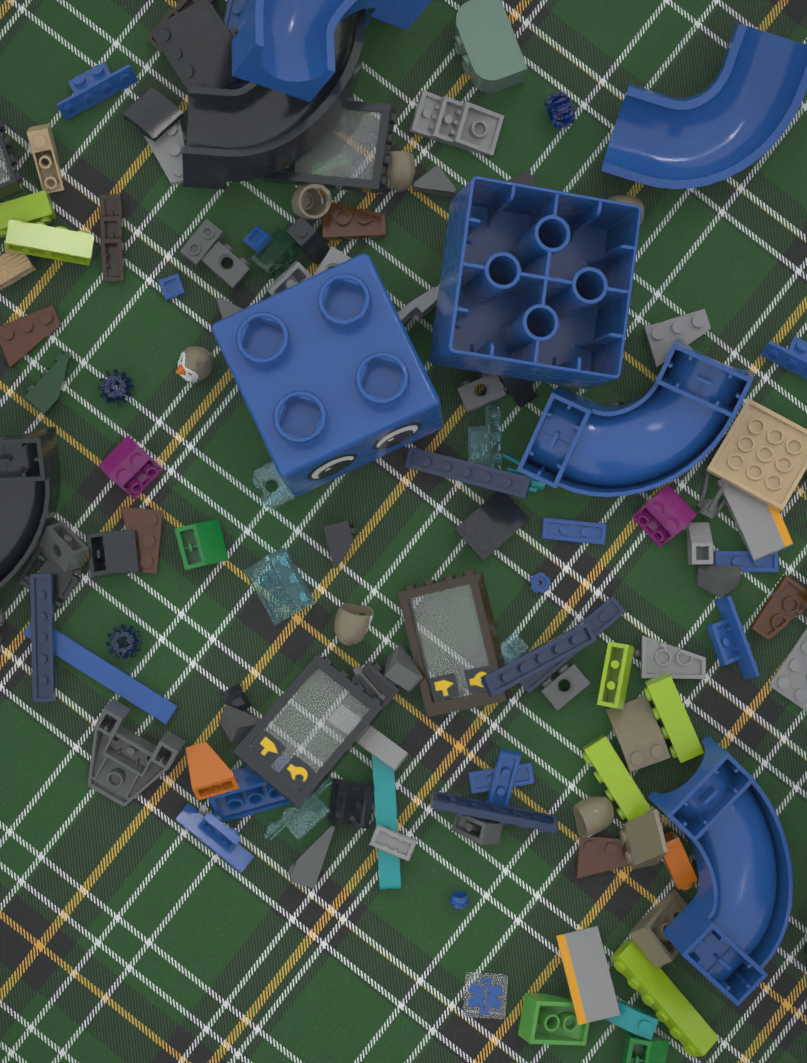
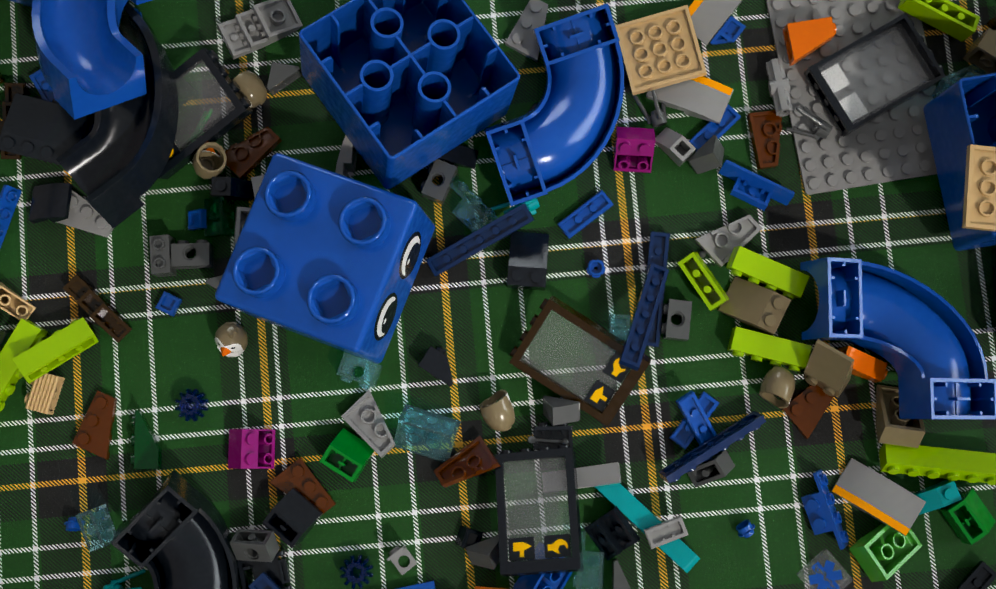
camera: 40 degrees left, 5 degrees down
(168, 657) = (396, 553): none -> light grey bracket
(241, 536) = (369, 424): none -> light grey wing
(289, 640) = (467, 463): none -> reddish brown wing
(532, 945) = (822, 511): none -> blue bracket

